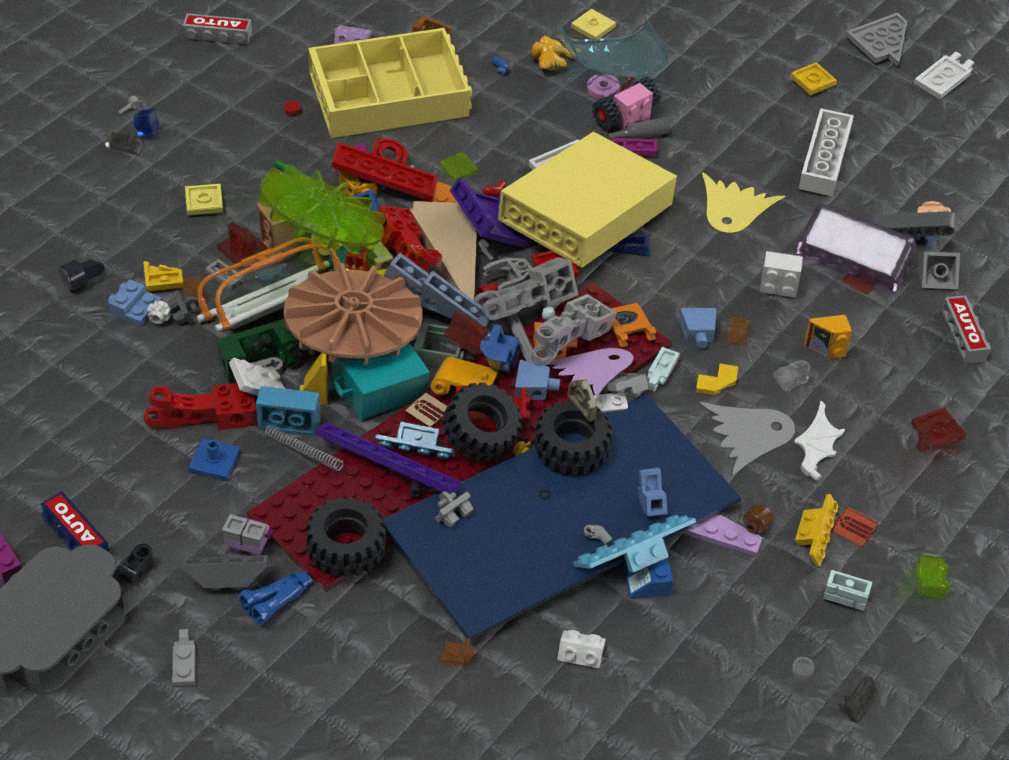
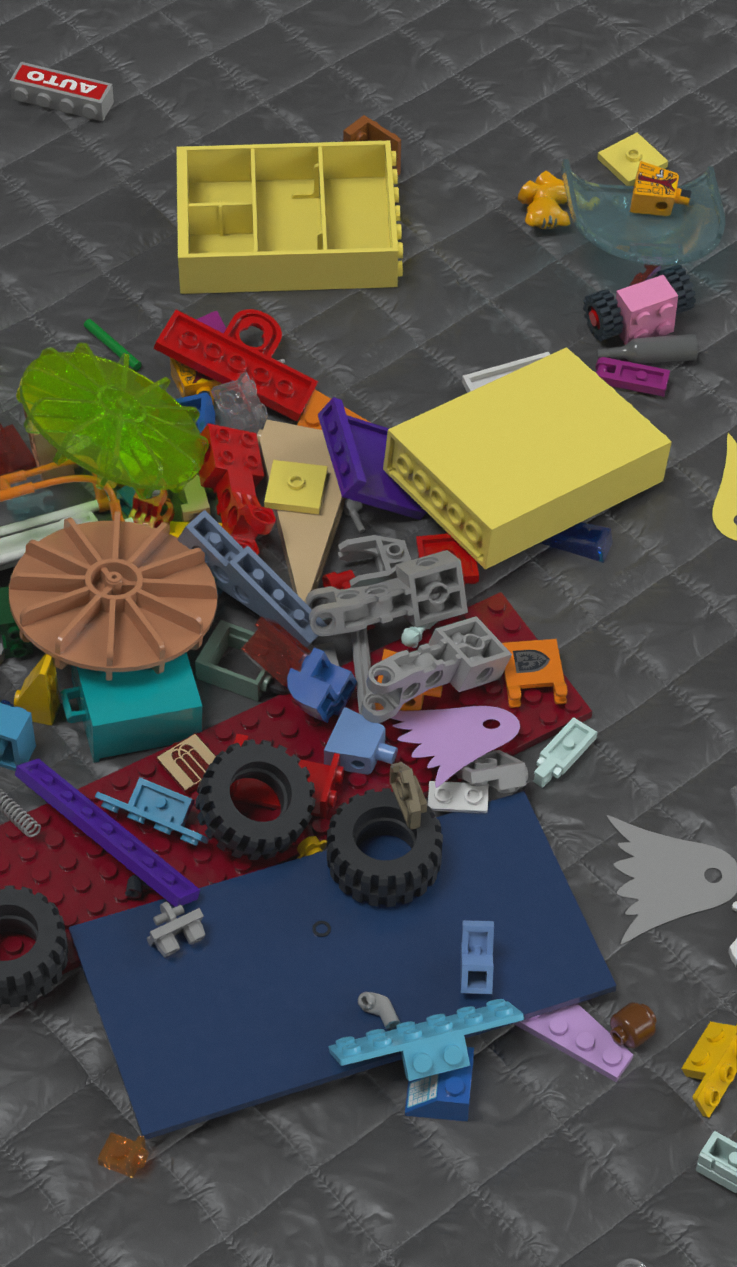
camera: 15 degrees right, 5 degrees up
(292, 108) = (136, 237): red tile -> none
(349, 34) = (252, 128): lavender bracket -> none
(393, 193) = (240, 404): none -> clear bracket
(446, 236) = (296, 487): none -> light yellow plate
(458, 166) = (356, 369): clear neon green piece -> none
(461, 373) = (258, 716): light orange door -> none
(494, 191) = (394, 417): red arm -> none
(502, 64) = (472, 208): blue arm -> none
(581, 648) = (306, 1182): white bracket -> none
(595, 89) = (611, 276): bright pink tile -> none
(616, 38) = (656, 191): none -> light orange torso
(698, 325) = (641, 690): medium blue torso -> none
(713, 385) = (635, 792): yellow tile -> none
(738, 330) = (699, 707): clear orange bracket -> none

